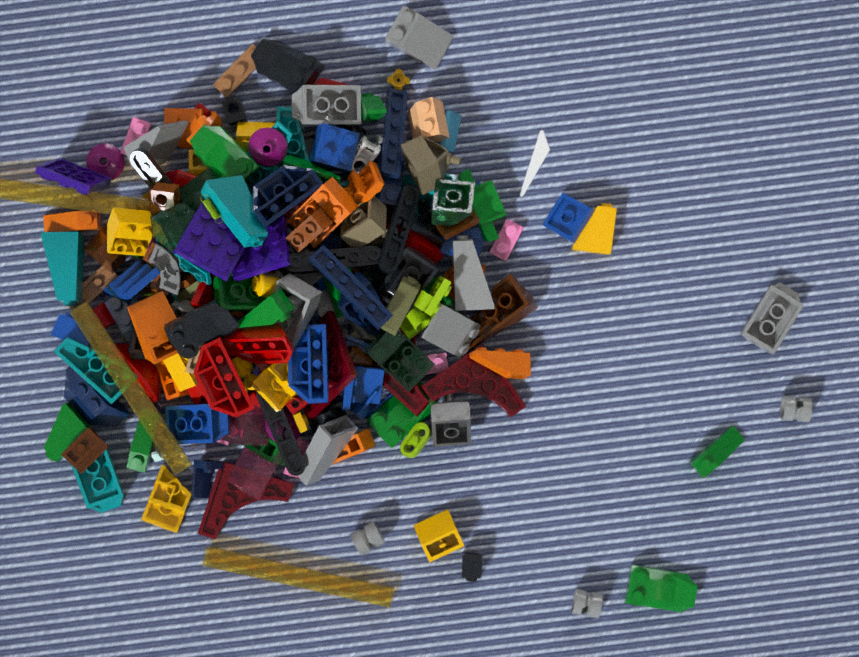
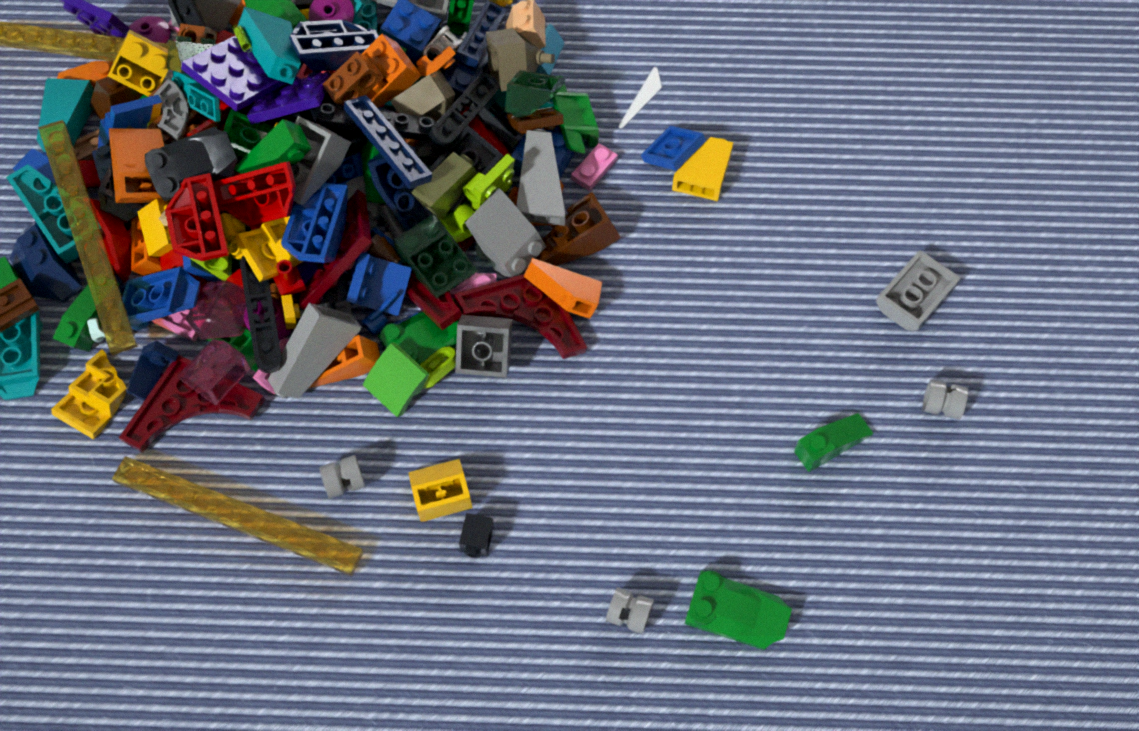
camera: 10 degrees right, 25 degrees down
(389, 457) = (395, 379): none -> bright green slope

